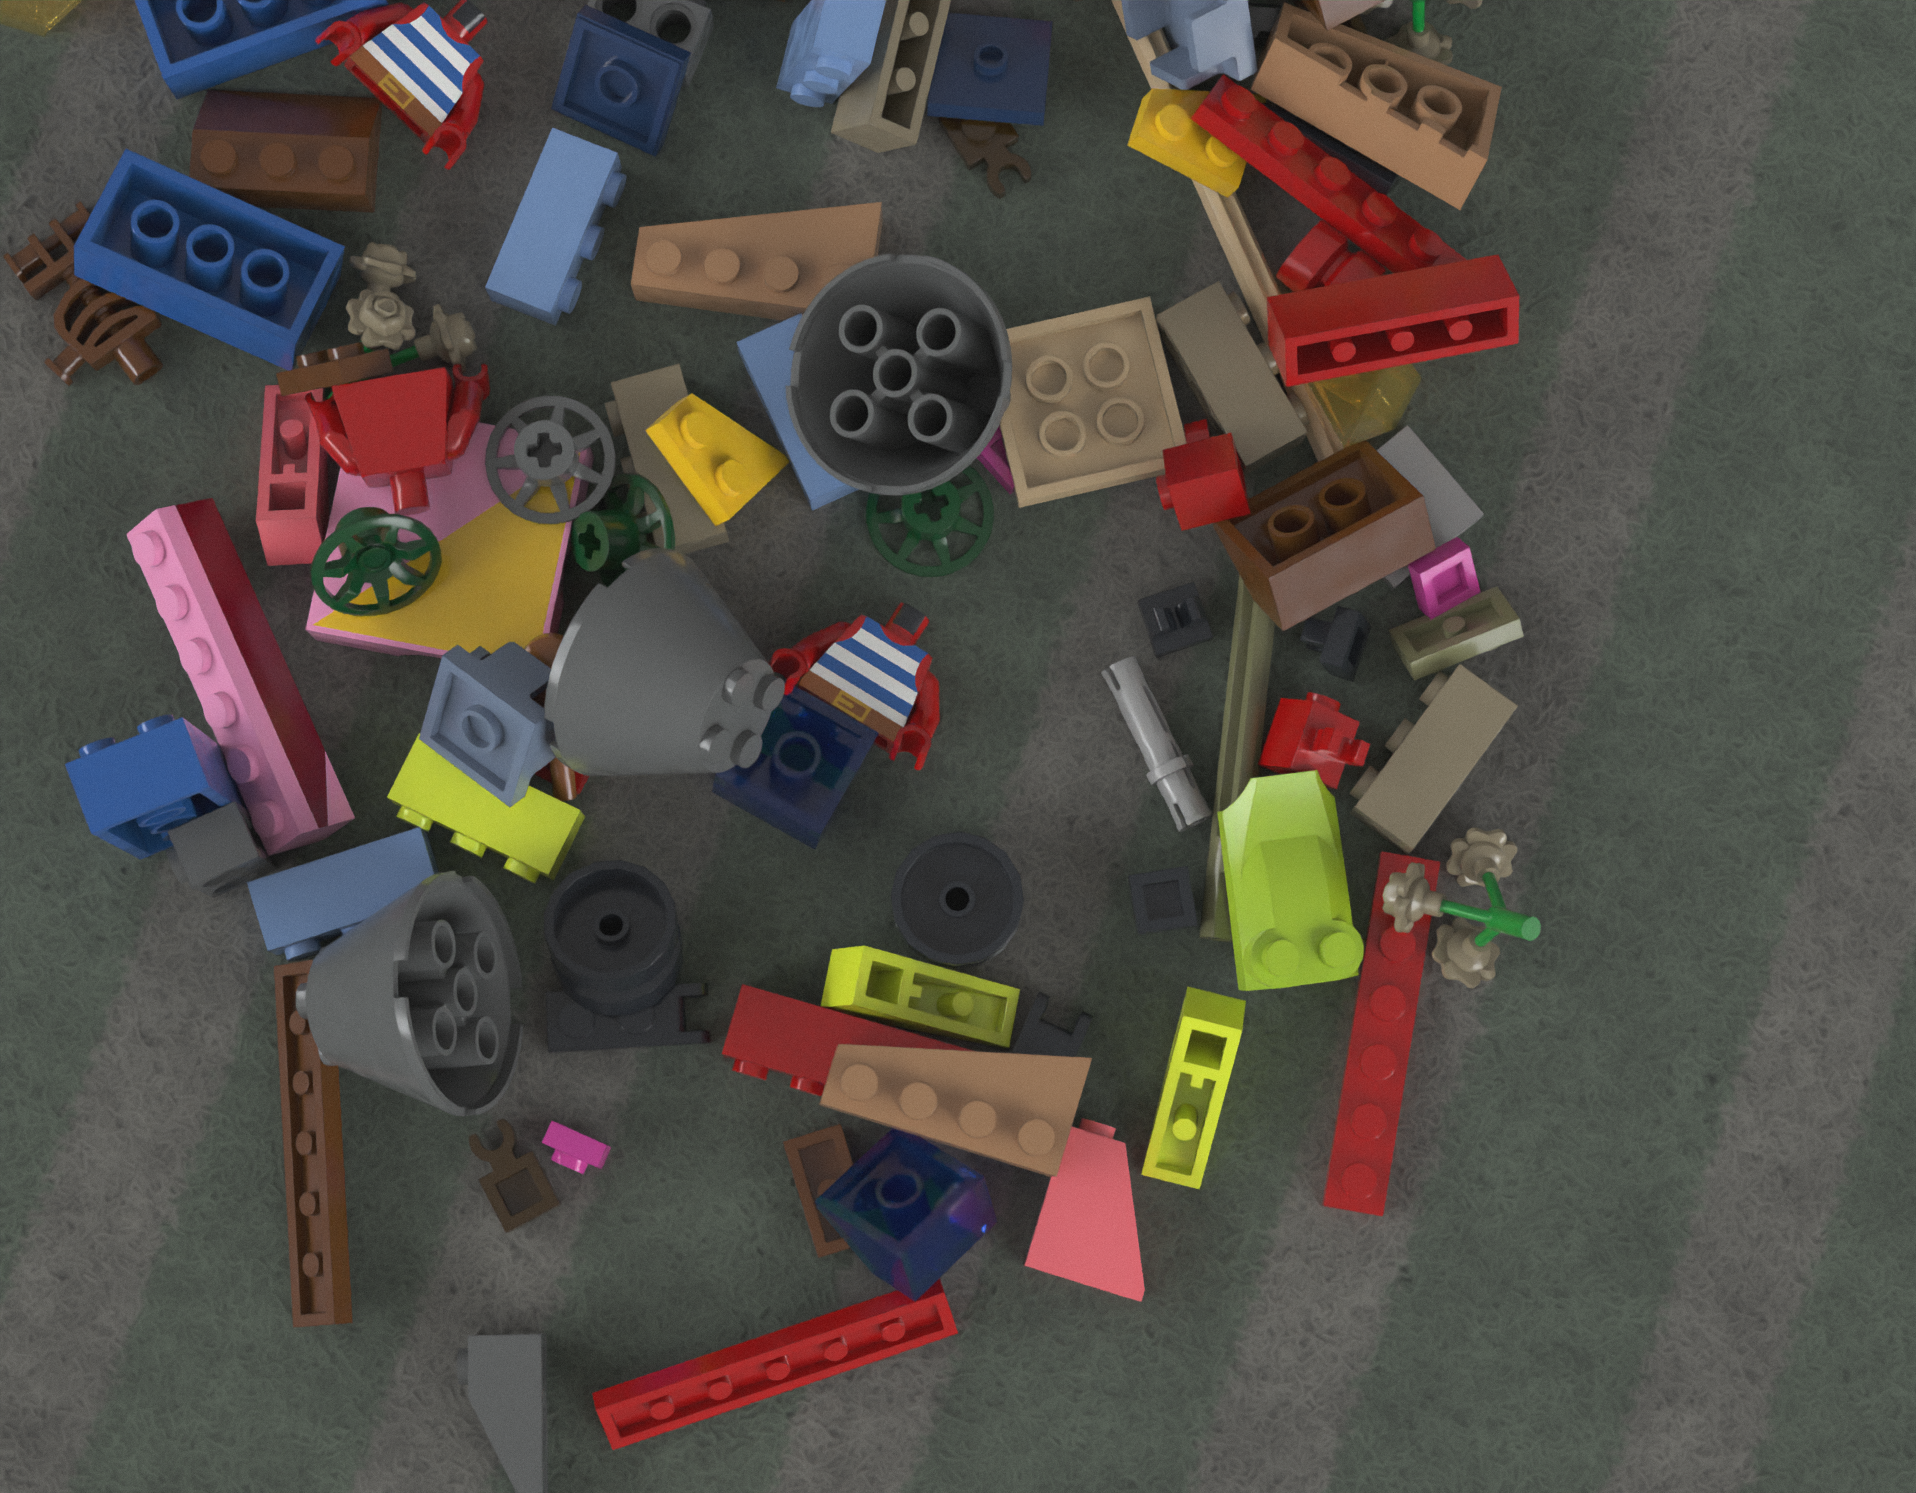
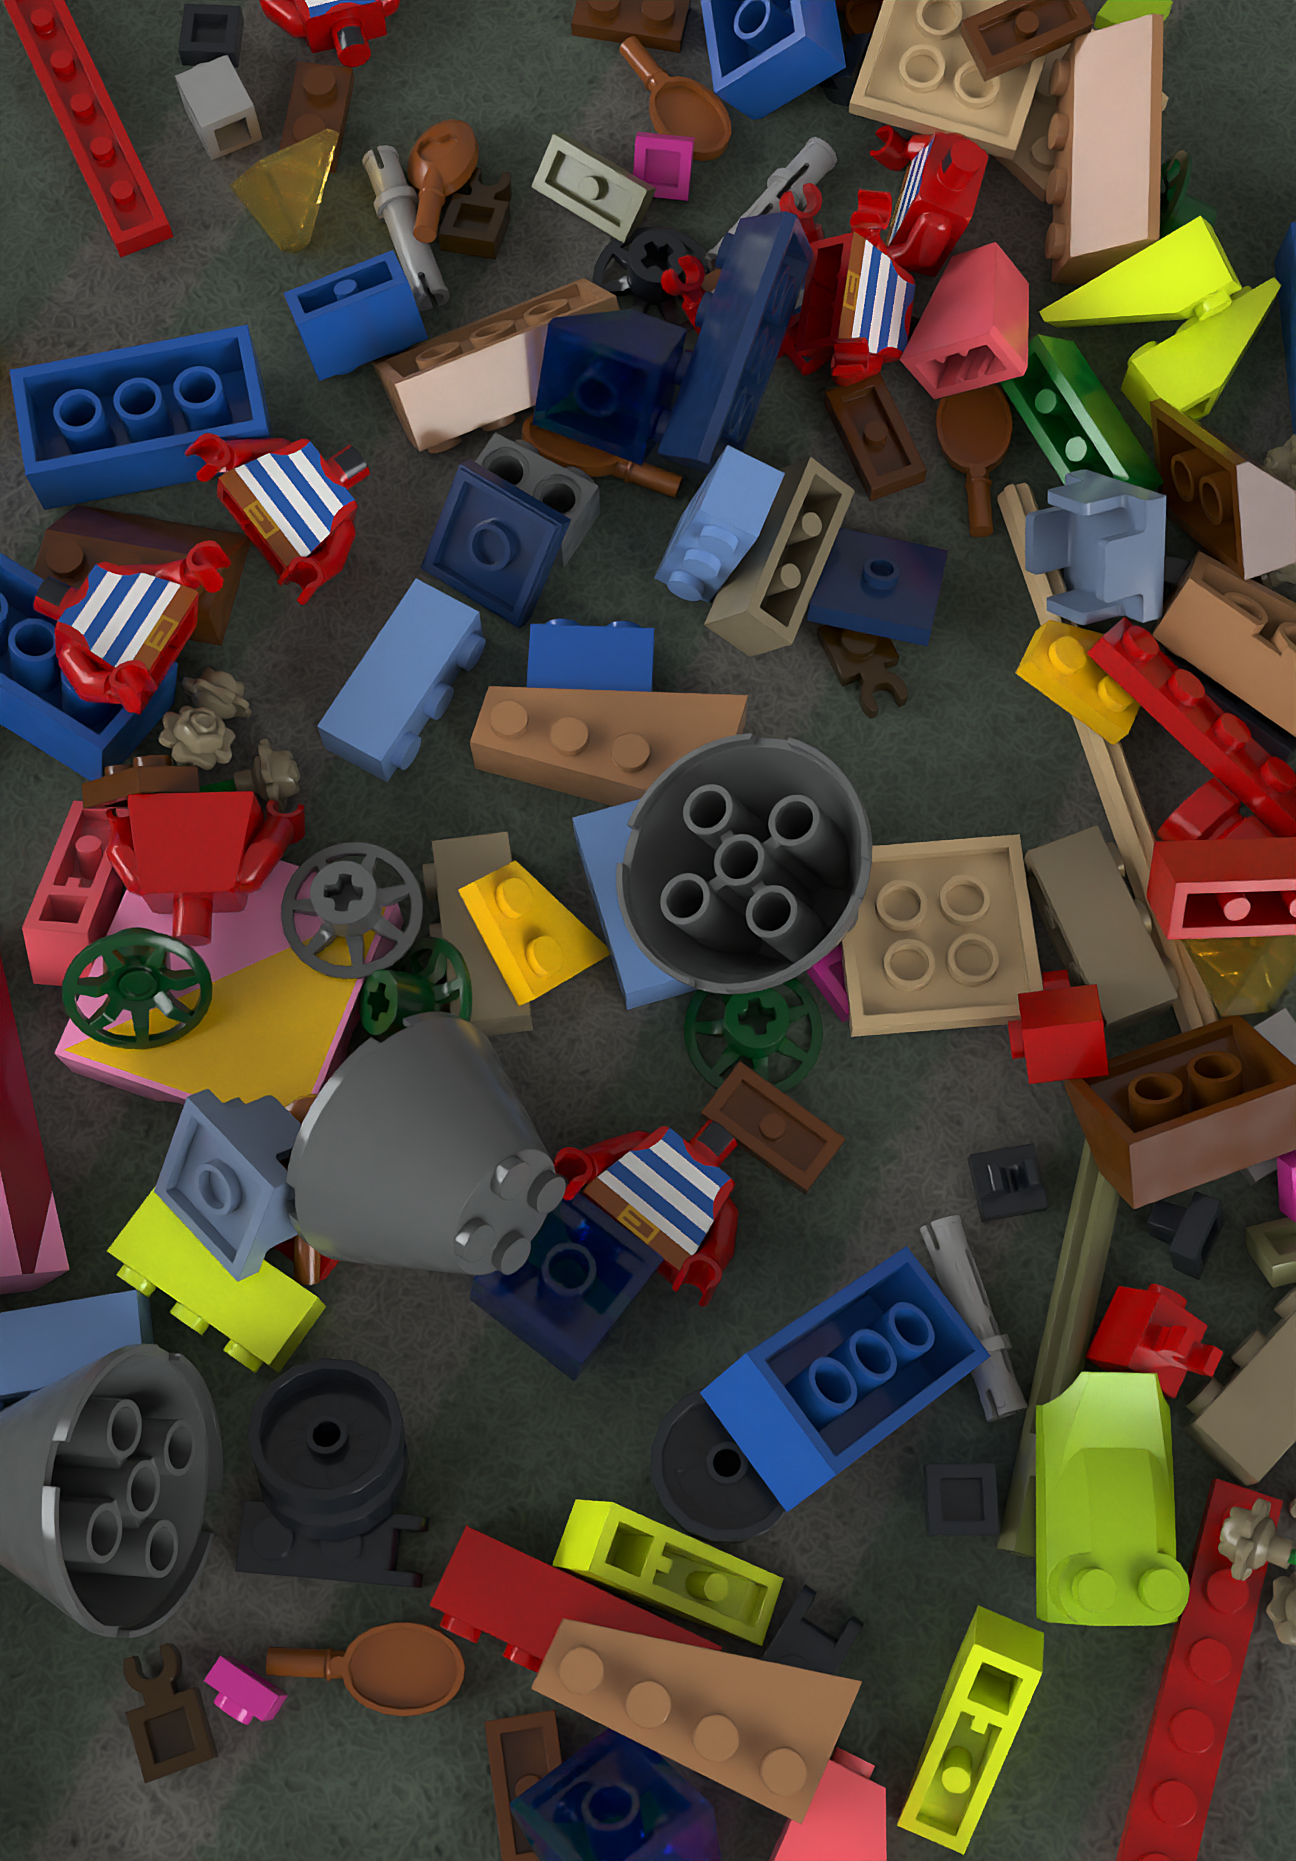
camera: 10 degrees right, 10 degrees down
(297, 221) = (128, 623): none -> torso
(693, 1111) = (386, 1668): none -> dark orange piece
(729, 183) = (591, 656): none -> blue brick
(959, 601) = (773, 1127): none -> reddish brown plate
(1049, 810) = (843, 1376): none -> blue brick

